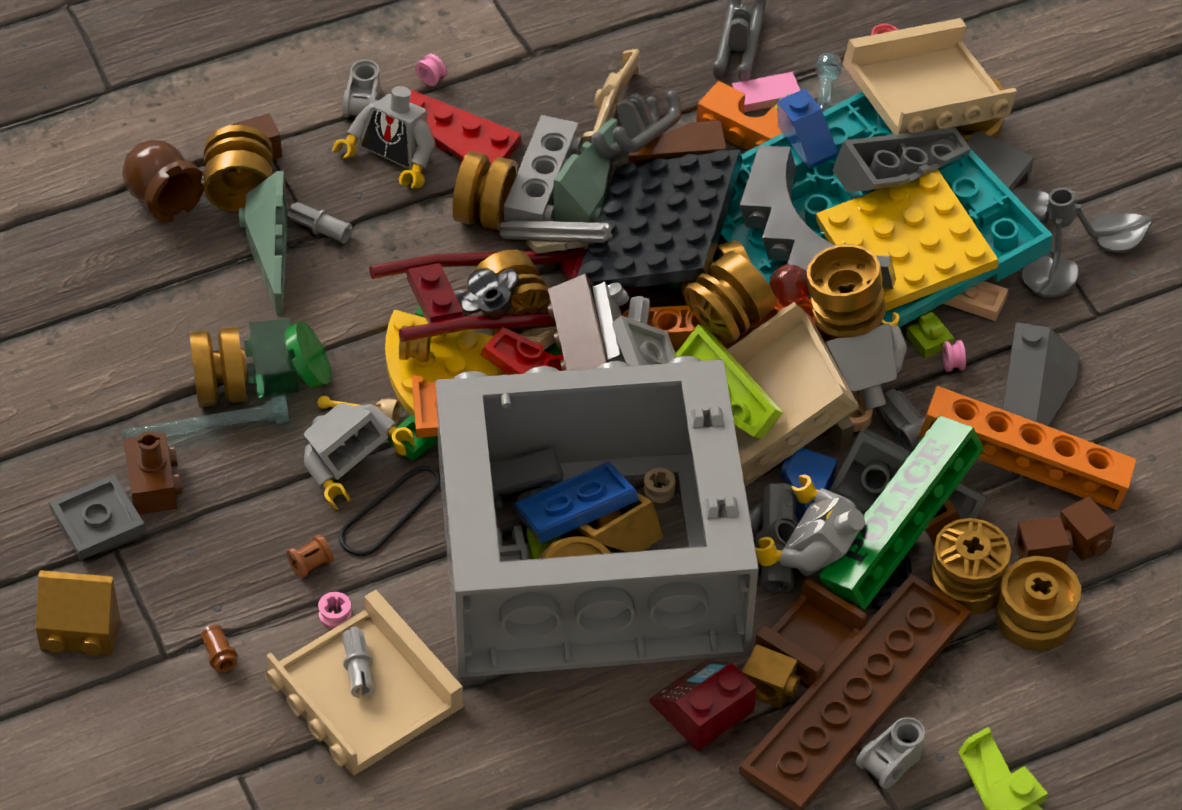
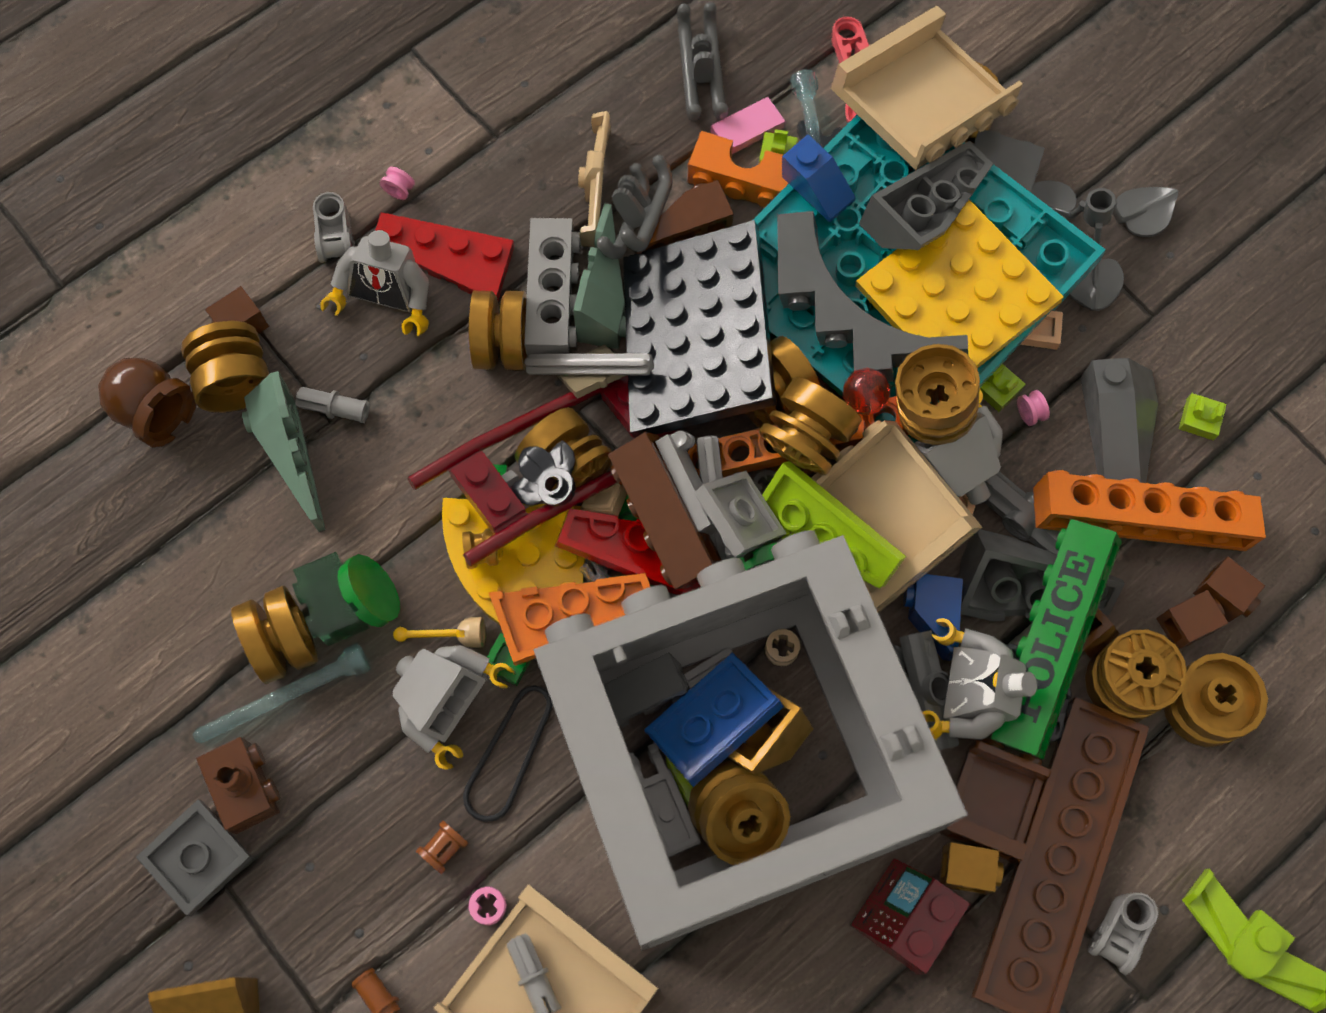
camera: 15 degrees left, 20 degrees up
(1114, 399) = (1202, 416): none -> lime tile

